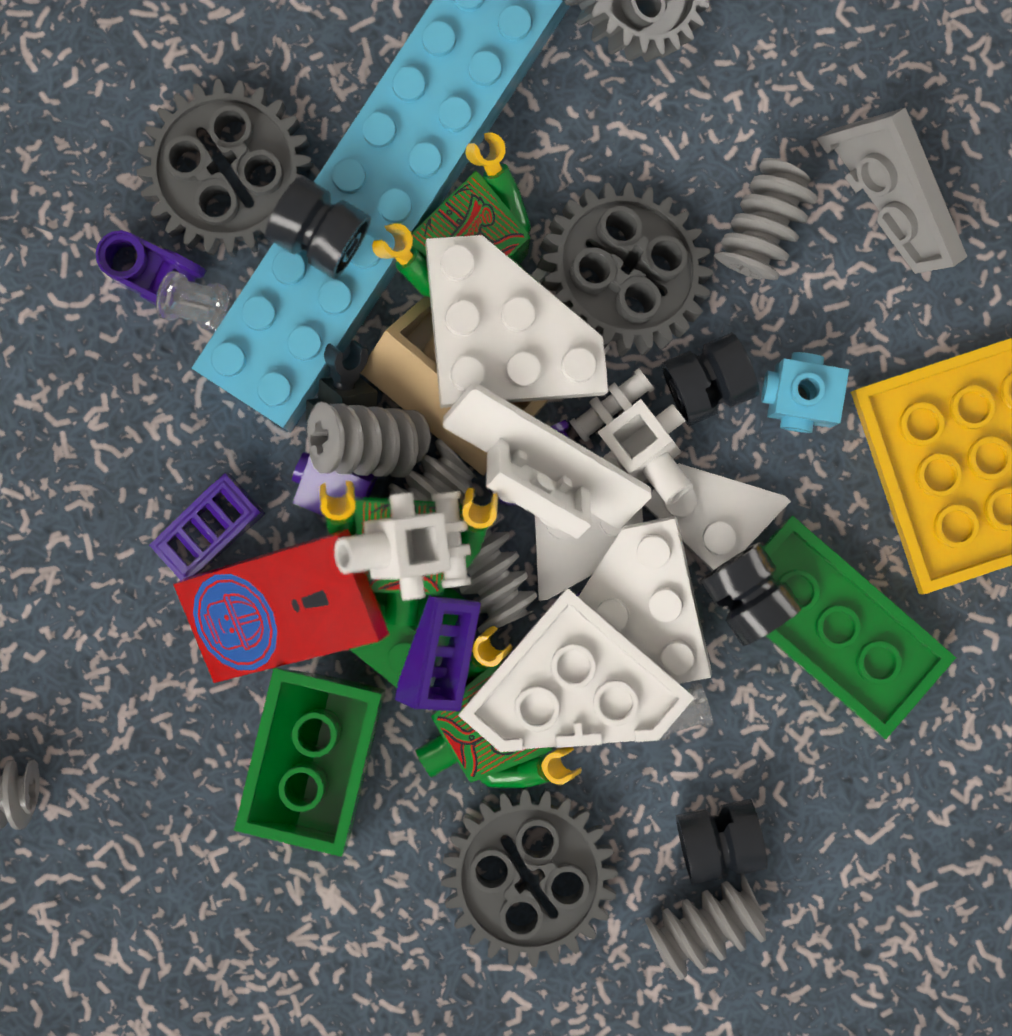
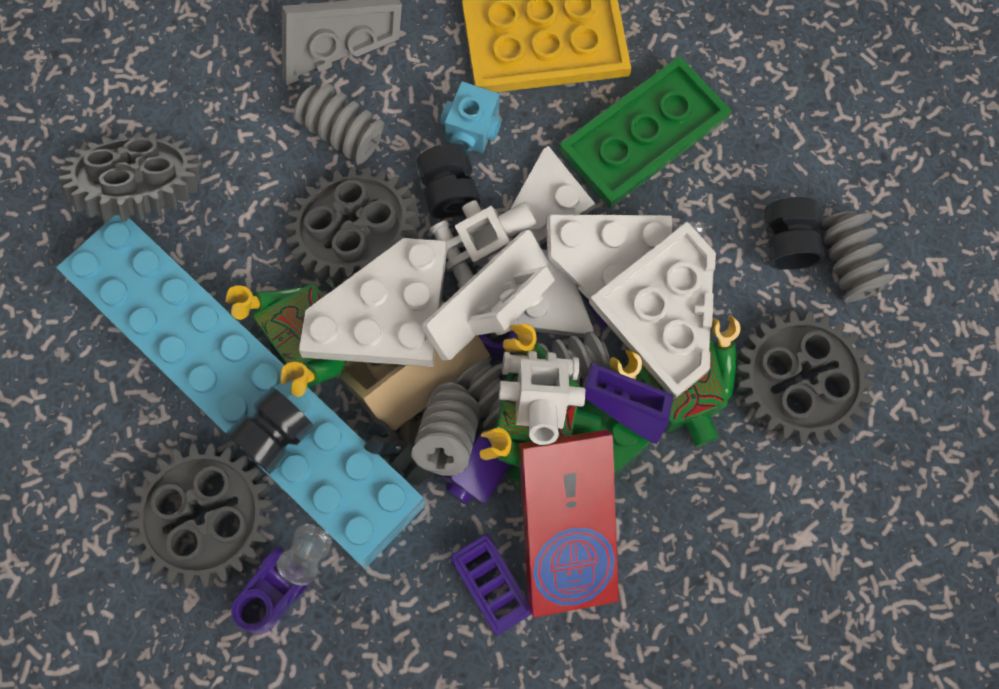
camera: 80 degrees left, 15 degrees down
(310, 760) = (696, 523): green slope -> none
(751, 594) = (618, 173): black wheel -> none

